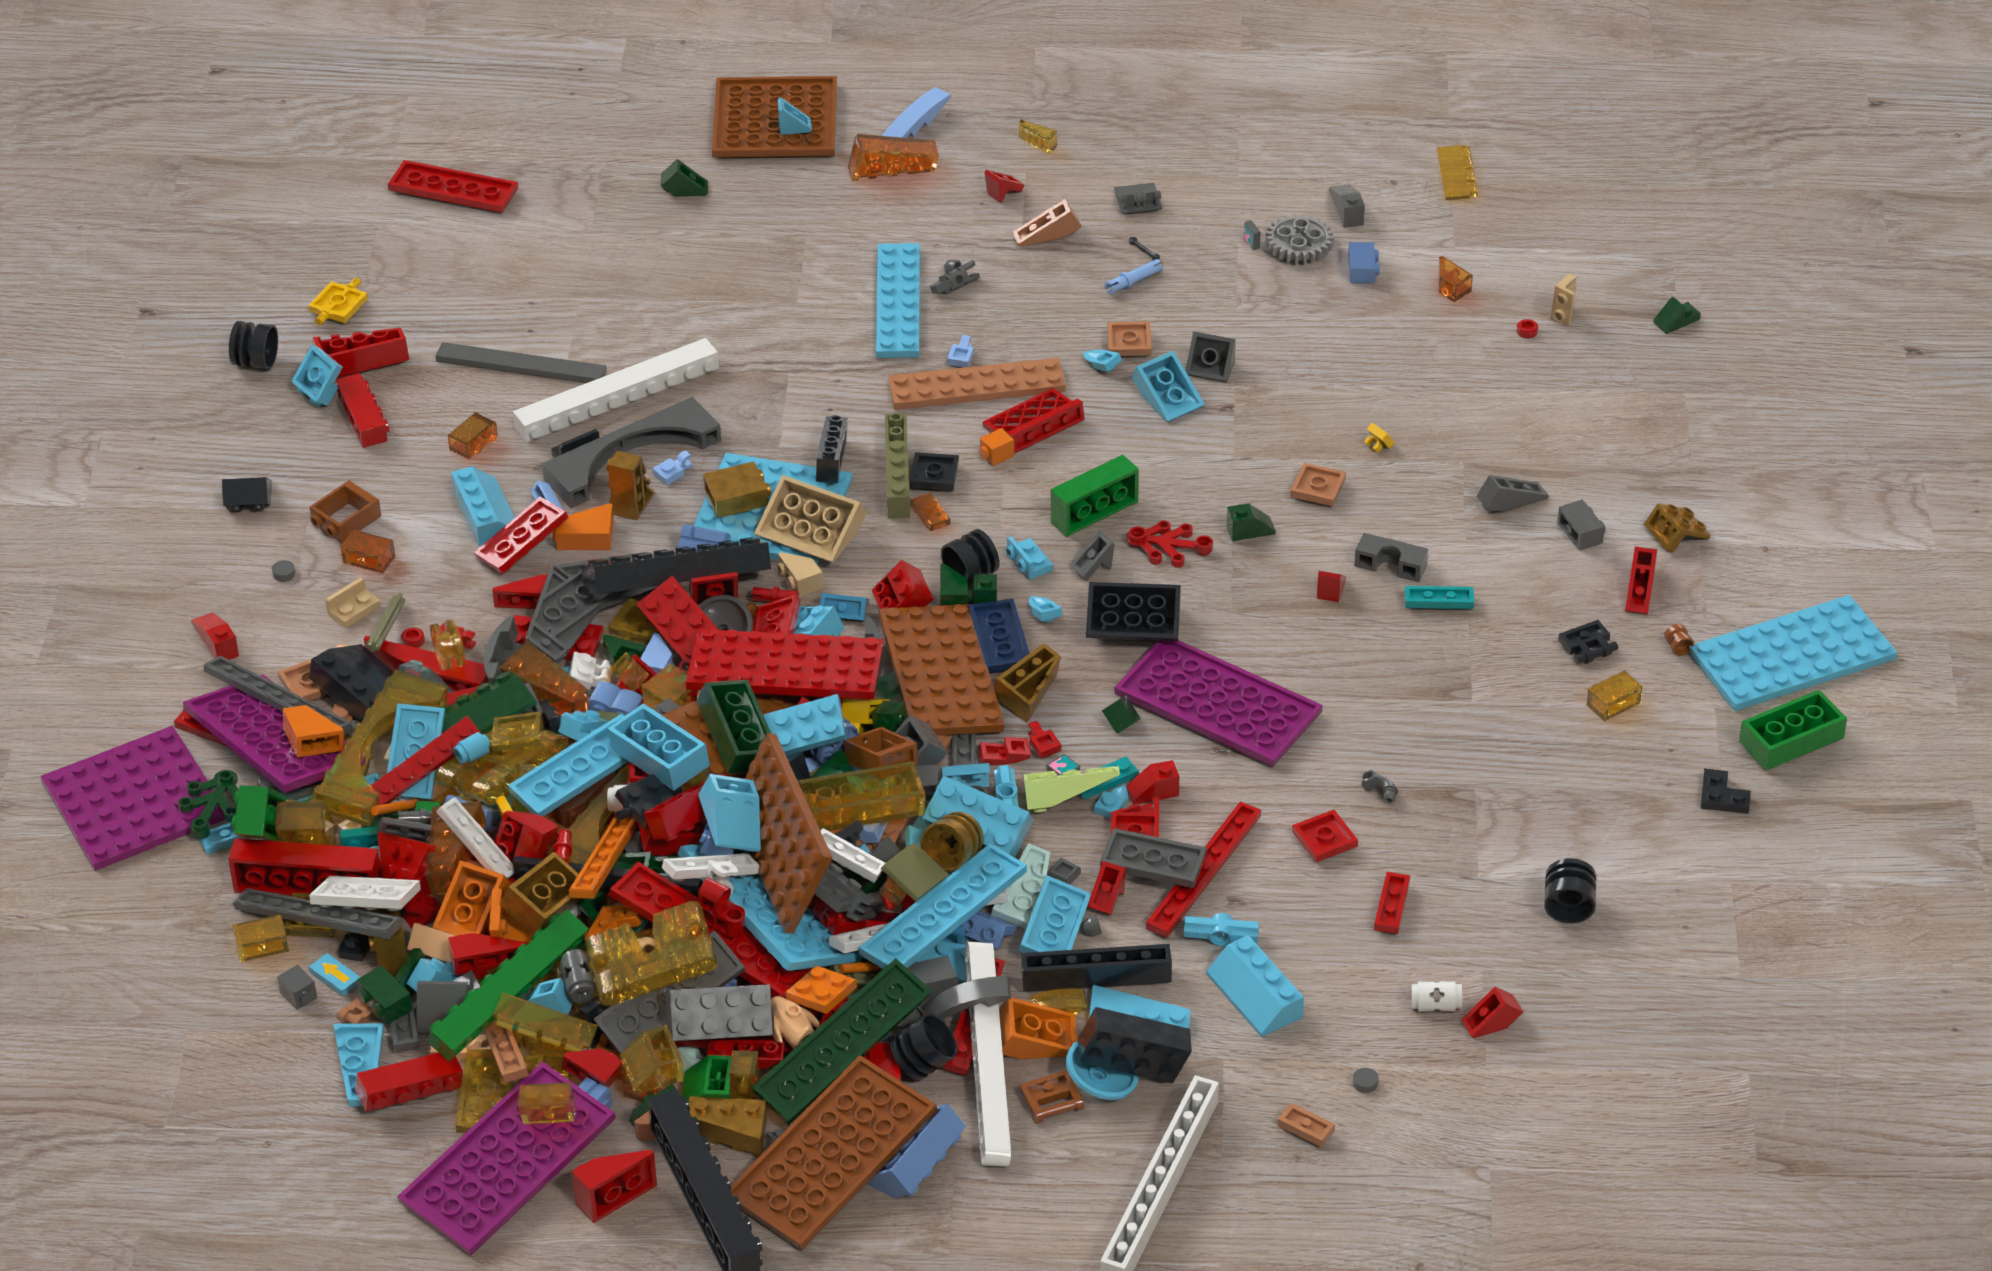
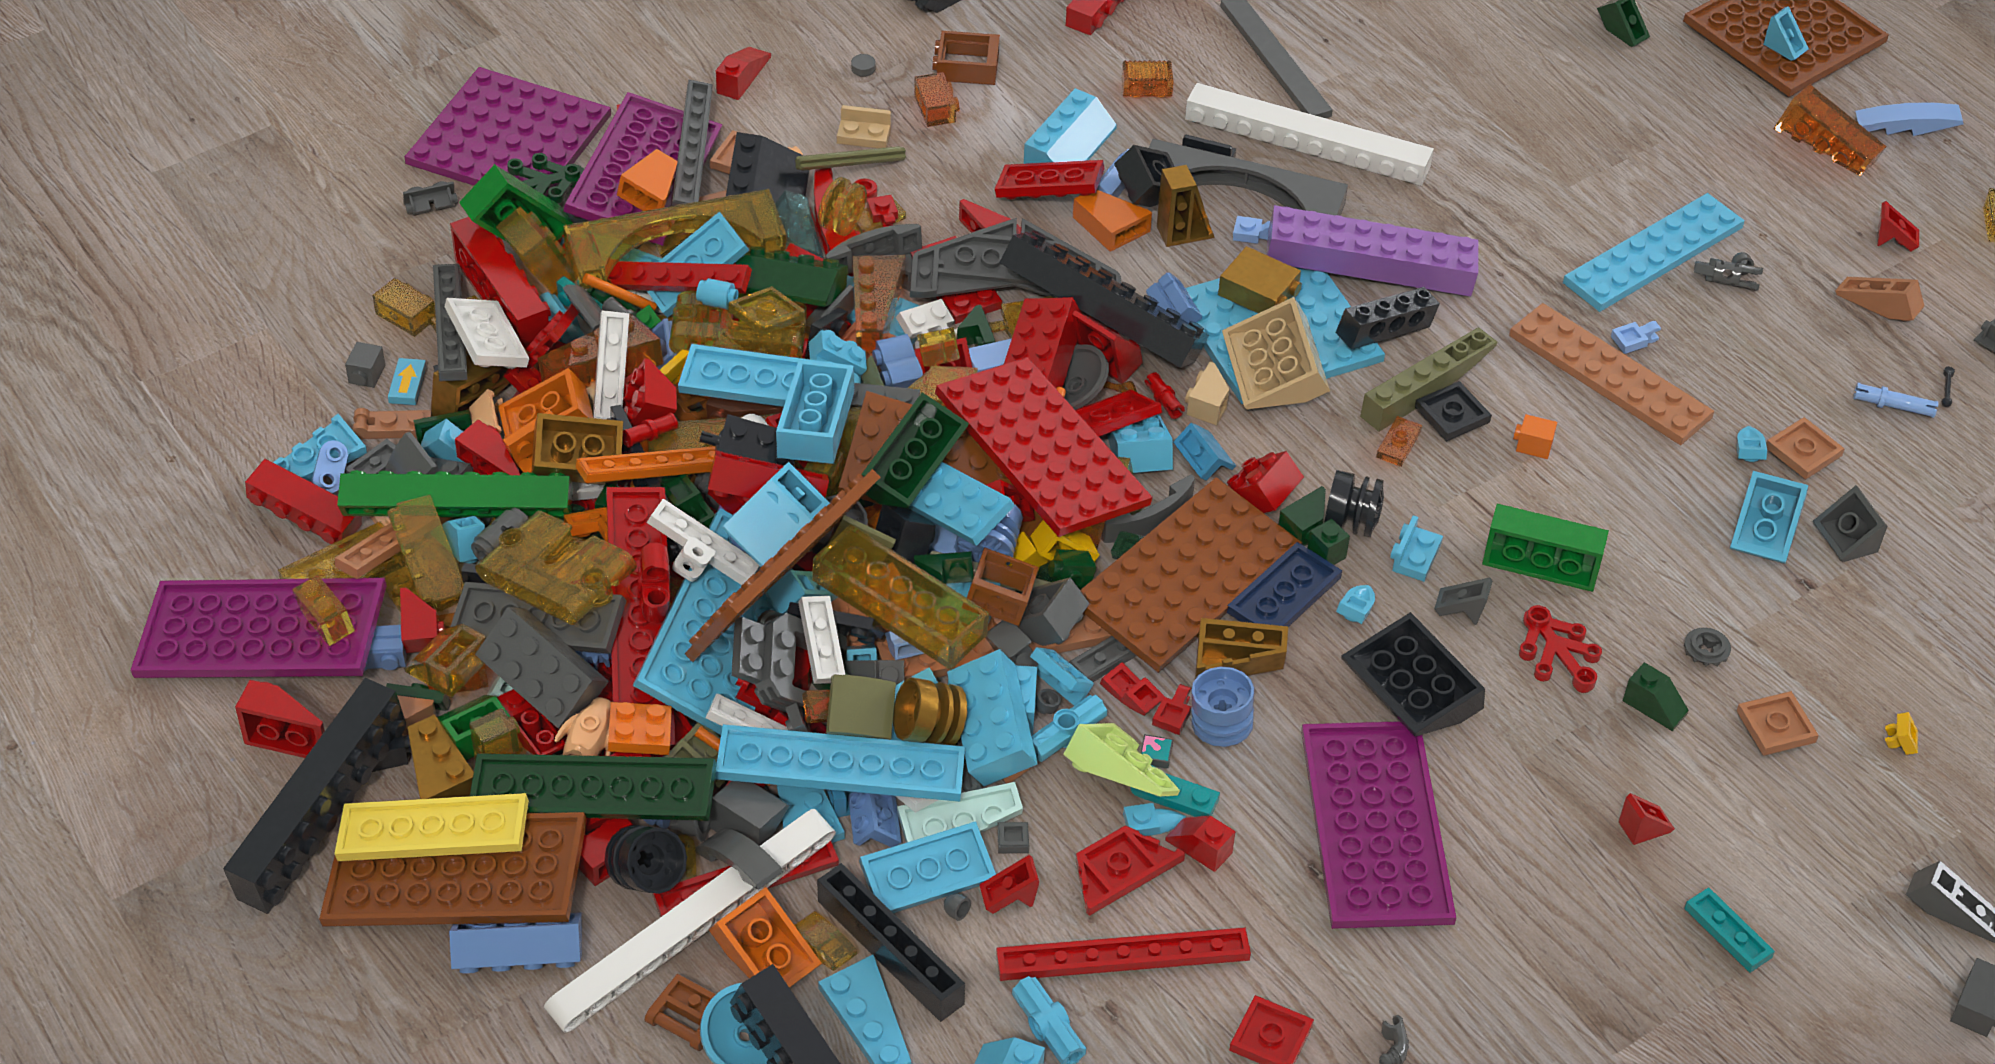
camera: 50 degrees right, 5 degrees up
(159, 863) = (418, 198): none -> dark grey hinge
(383, 1048) = (330, 466): none -> light blue plate
(384, 995) = (388, 422): dark green brick -> none
(582, 484) = (1141, 173): none -> black slope
(764, 421) = (1373, 250): none -> medium lavender brick
(792, 1141) = (432, 827): none -> light yellow plate
(887, 912) = (796, 719): none -> dark grey plate
(1045, 424) = (1611, 455): red fence -> none
(1069, 712) = (1222, 706): none -> medium blue wheel
(1121, 714) = (1273, 753): dark green panel -> none
(1155, 857) = (1084, 899): dark grey plate -> none
(1225, 474) = (1711, 639): none -> dark grey gear
(1376, 550) = (1733, 829): dark grey arch -> none

